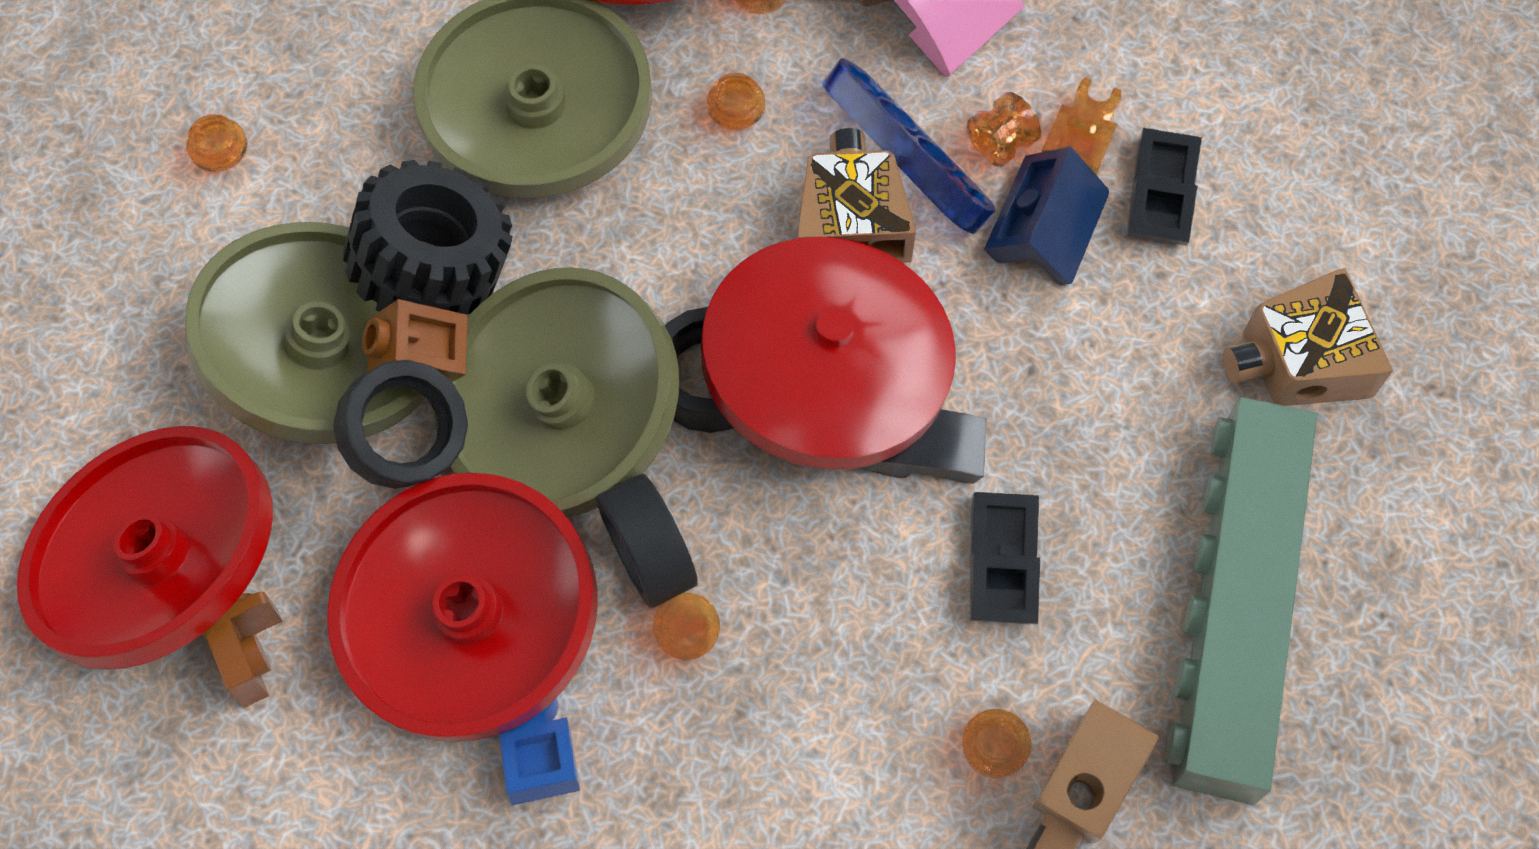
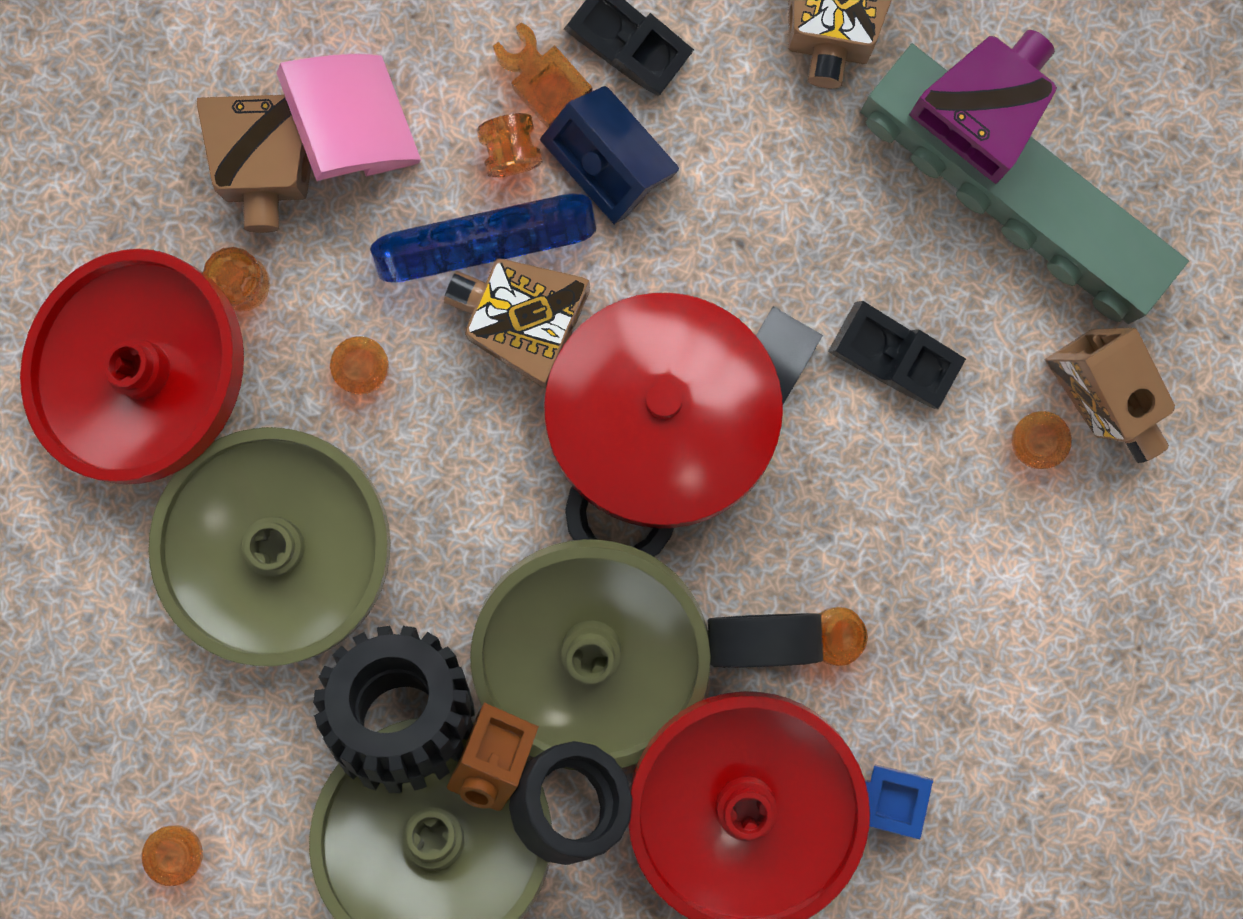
camera: 65 degrees left, 20 degrees up
(1304, 497) = (990, 102): none -> magenta torso

